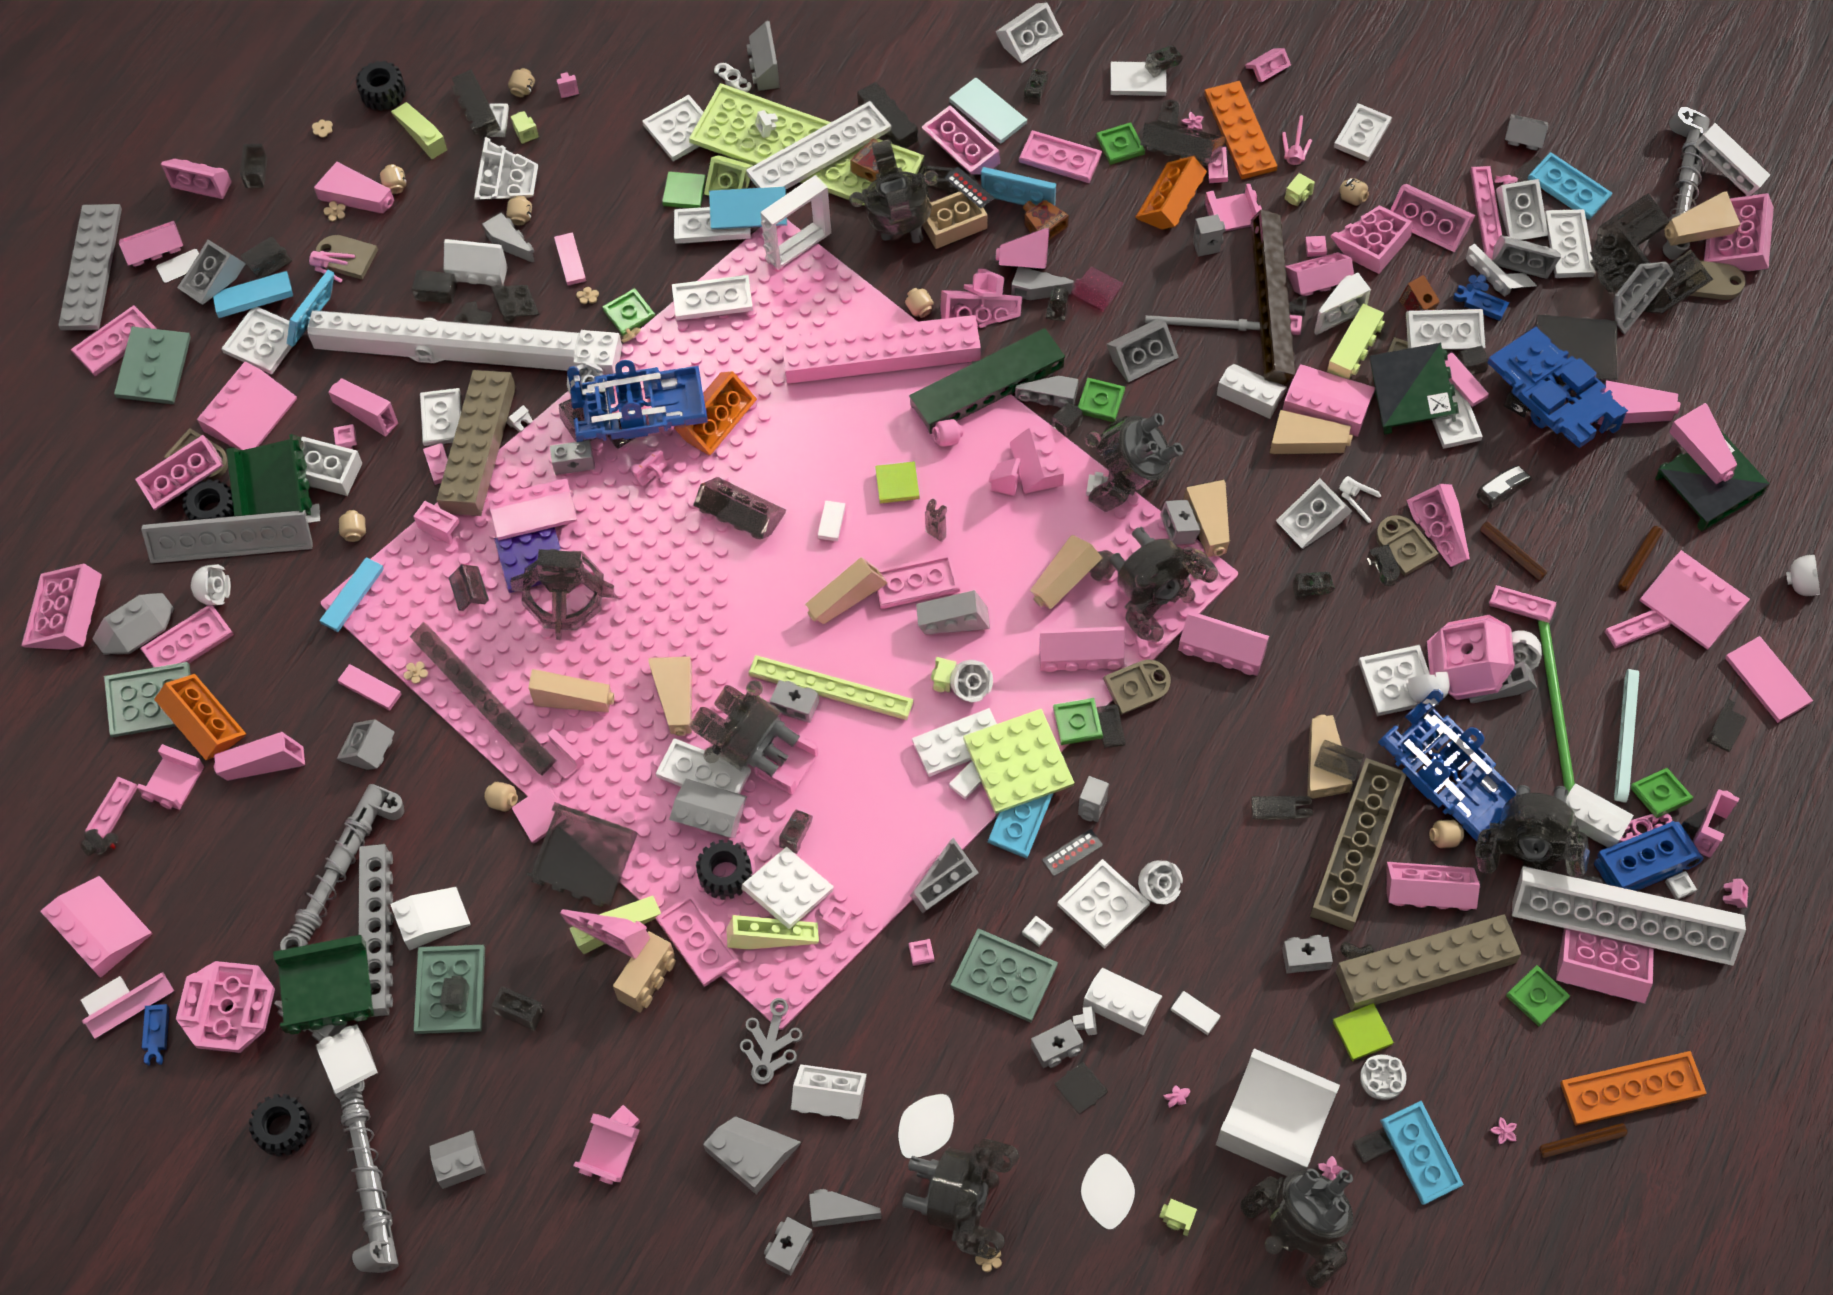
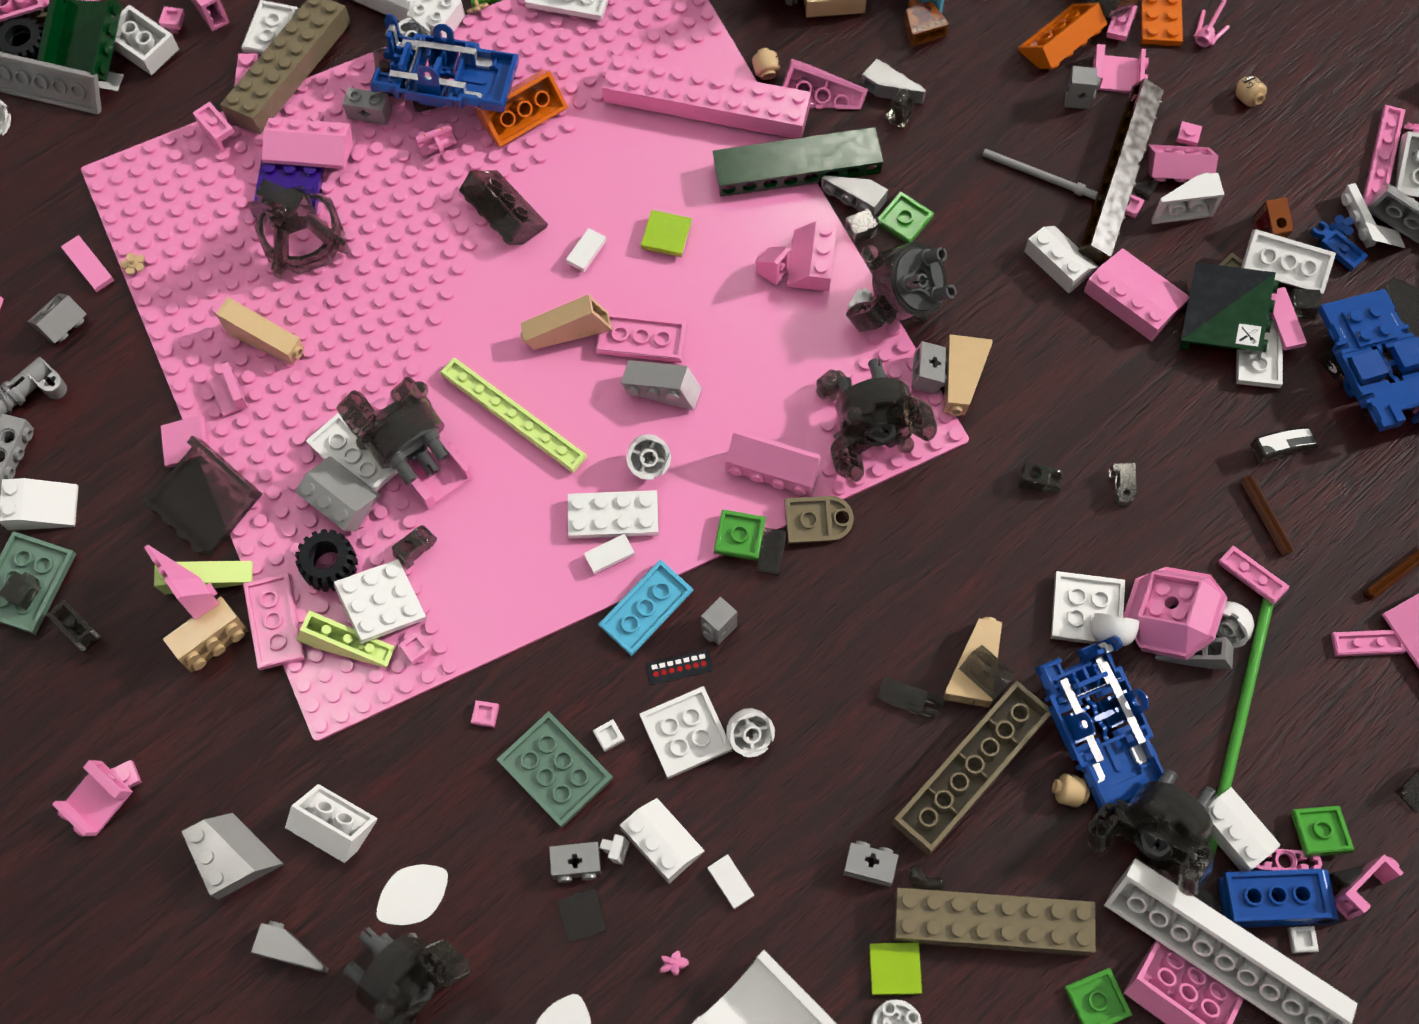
camera: 20 degrees right, 5 degrees up
(351, 594) = (109, 169): medium azure tile -> none
(352, 526) = (139, 104): tan head -> none
(468, 586) = (217, 197): clear smoke panel -> none
(483, 698) = (180, 311): clear smoke plate -> none
(501, 796) = (155, 411): tan head -> none
(518, 416) = (337, 51): white tile -> none
(674, 687) = (361, 361): tan slope -> none
(770, 1044) = (295, 753): light grey plant -> none
(788, 1258) = (234, 964): light grey brick -> none
(795, 700) = (470, 416): light grey brick -> none
(935, 520) = (682, 282): clear smoke hinge -> none
(942, 673) = (623, 438): yellowish green brick -> none
(944, 876) = (536, 646): light grey wedge -> none
(947, 432) = (735, 200): bright pink head -> none
(986, 284) = (836, 65): bright pink panel -> none
(1018, 761) = (661, 555): yellowish green plate -> none
(1025, 251) = (890, 45): bright pink slope -> none
(1065, 571) = (789, 378): tan slope -> none
(1096, 288) = (947, 106): clear pink hinge -> none
(1142, 350) = (967, 182): light grey slope -> none
(1223, 643) = (920, 507): bright pink slope -> none
(1299, 189) = (1195, 71): yellowish green brick -> none
(1308, 435) = (1100, 323): tan slope -> none
(1313, 514) = (1071, 406): white slope -> none
(1352, 487) = (1122, 391): white plant -> none
(1356, 341) = (1189, 244): yellowish green brick -> none
(1362, 132) = (1285, 34): white plate -> none
(1374, 238) = (1252, 144): bright pink wedge -> none
(1406, 543) = (1155, 470): dark tan tile -> none
(1432, 217) = (1320, 142): bright pink slope -> none
(1432, 886) = (1033, 840): bright pink slope -> none
(1441, 519) = (1203, 456): bright pink wedge -> none
(1626, 736) = (1308, 755): light aqua beam -> none
(1739, 893) = (1363, 974): bright pink tile -> none

